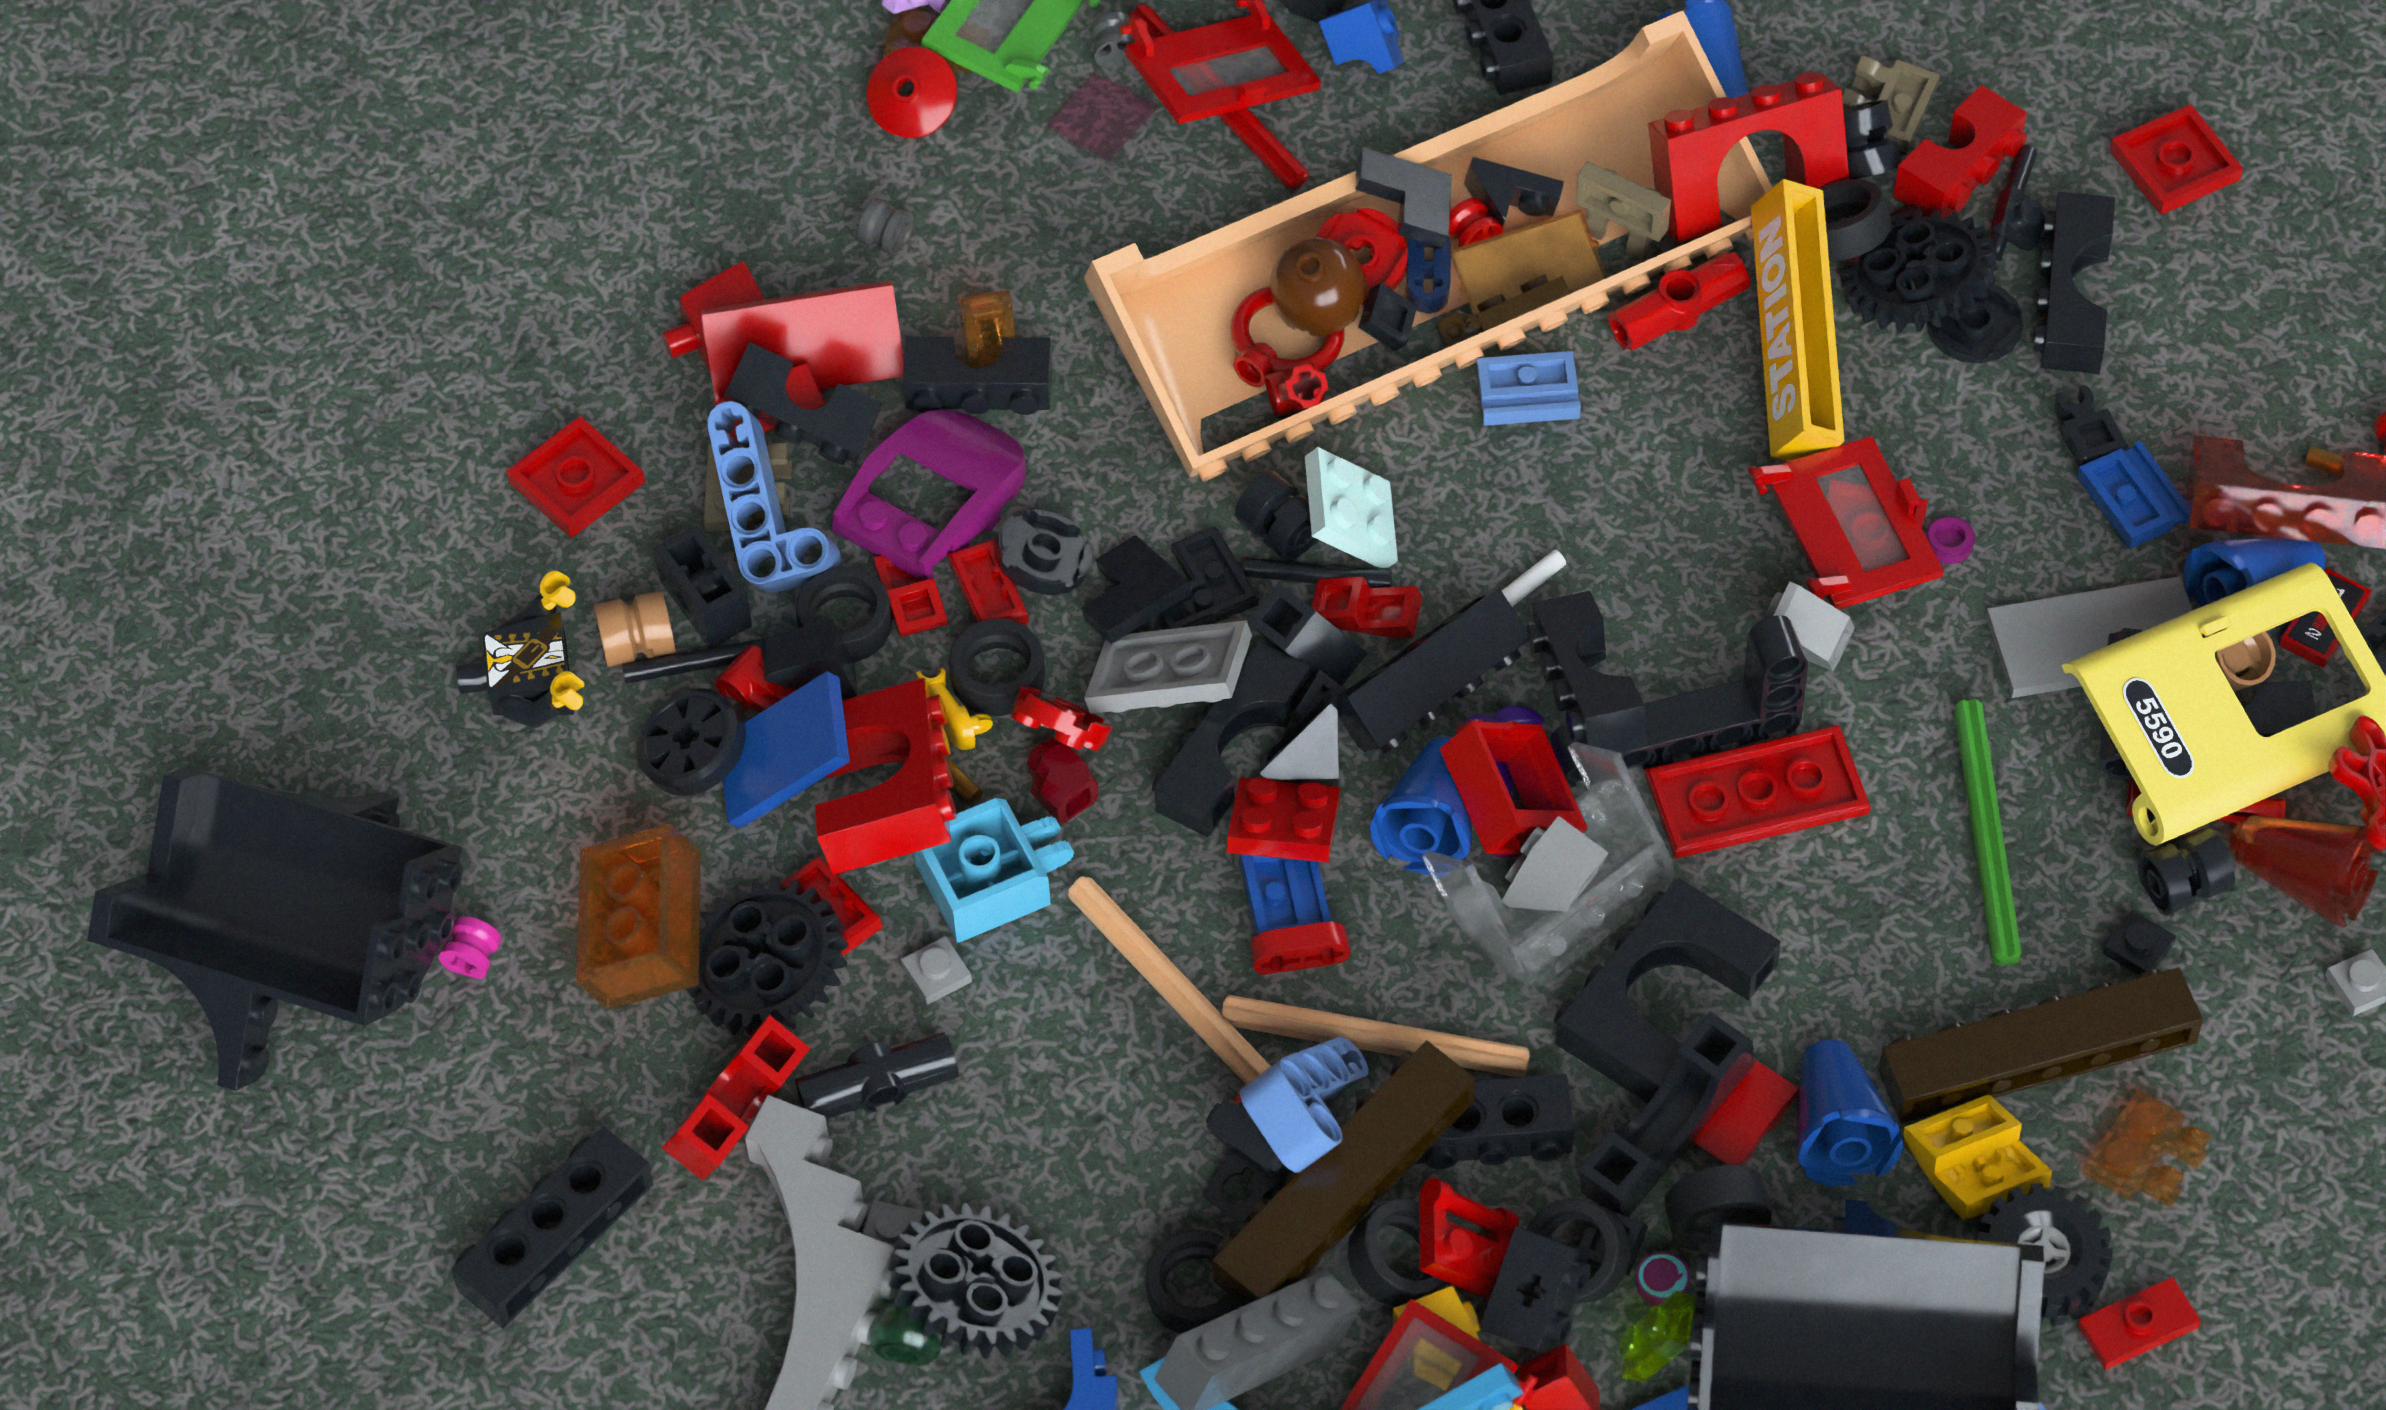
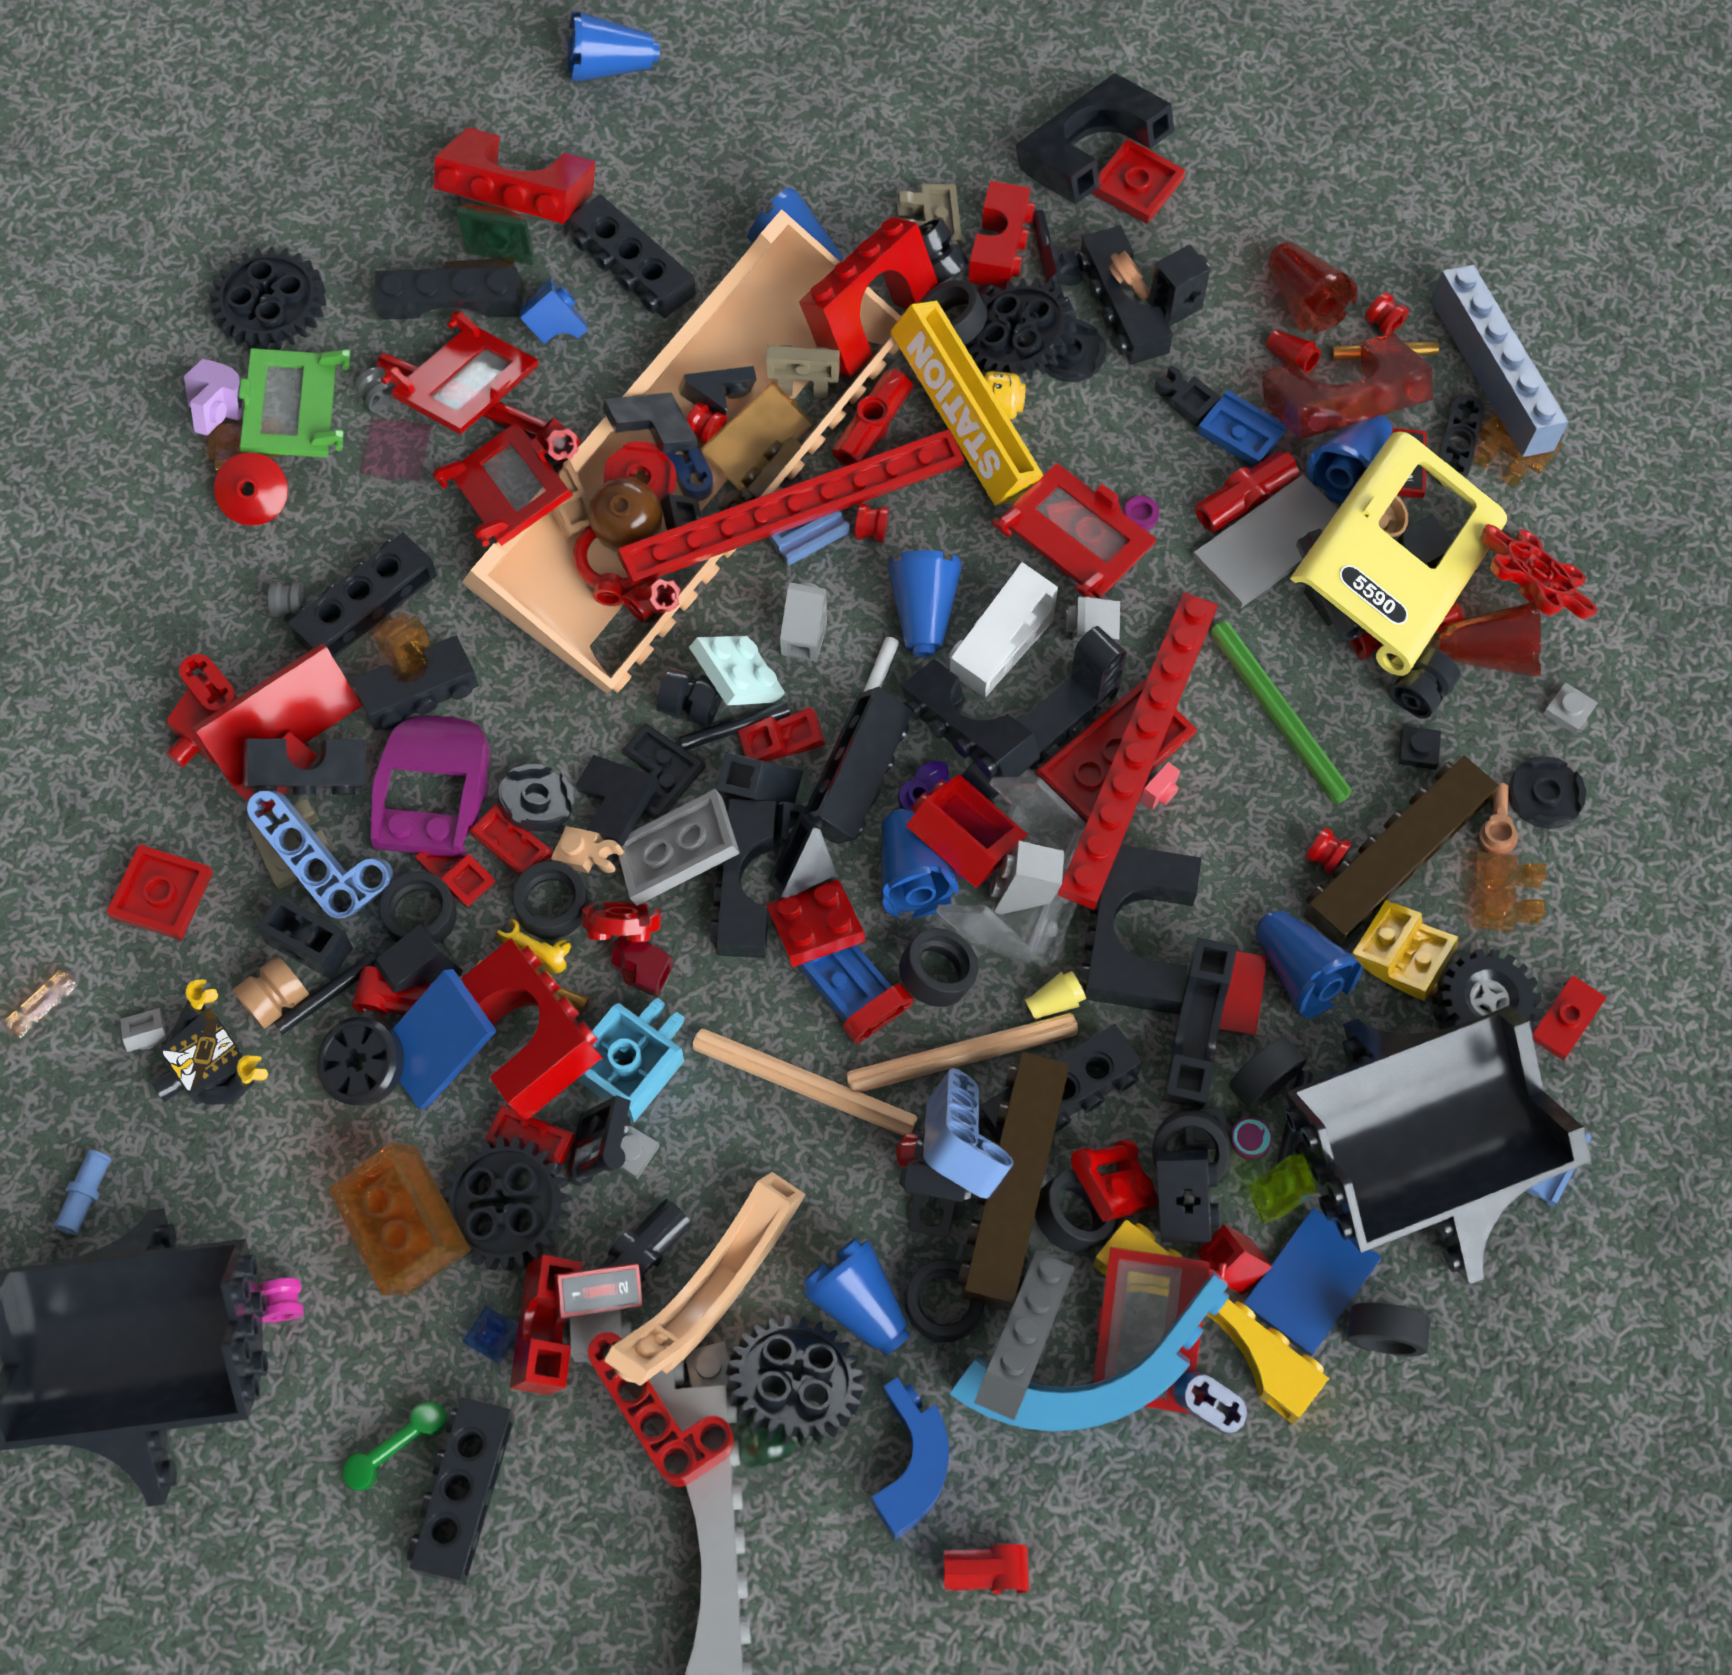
camera: 30 degrees left, 10 degrees up
(324, 746) = (82, 1192): none -> medium blue pin
(387, 538) = (41, 1003): none -> clear orange axle
(459, 1155) = (360, 1469): none -> green bar
(478, 610) = (143, 1030): none -> light grey plate
(673, 1089) = (491, 1335): none -> clear blue tile
(751, 276) = (203, 691): none -> red beam
(793, 1221) = (650, 1406): none -> red beam
(810, 1081) = (598, 1290): none -> tile
(898, 939) = (600, 1130): none -> black plate
(943, 1147) = (713, 1288): none -> light nougat arch
(973, 258) = (385, 594): none -> black brick
(1065, 629) = (583, 849): none -> light nougat plate
(1098, 1226) = (859, 1297): none -> blue cone
(1199, 199) = (507, 484): none -> red piece
(1262, 246) = (574, 512): none -> medium nougat tile
(1286, 175) = (558, 441): none -> red piece
(1414, 900) = (953, 948): none -> black tyre
(1459, 487) = (804, 621): none -> light grey slope
(1519, 354) = (789, 507): none -> red plate
(1520, 1022) = (1056, 996): none -> light yellow cone
(1609, 415) = (871, 523): none -> red wheel
(1620, 519) = (924, 597): none -> blue cone
(1695, 596) = (1005, 630): none -> white wedge
(1778, 793) = (1137, 752): none -> red plate
(1783, 849) = (1161, 787): none -> coral plate
(1858, 335) = (1008, 391): none -> yellow head
(1947, 1003) = (1328, 851): none -> red wheel
(2085, 248) = (1125, 269): none -> nougat plate
(2096, 564) = (1246, 490): none -> red piece
(2147, 294) = (1179, 284): none -> black brick
(2178, 1079) = (1499, 832): none -> nougat plate
(2192, 58) = (1111, 106): none -> black arch
(2257, 431) = (1294, 349): none -> red cone
(2265, 1078) = (1549, 803): none -> black tile
(2319, 367) = (1311, 287): none -> clear red cone

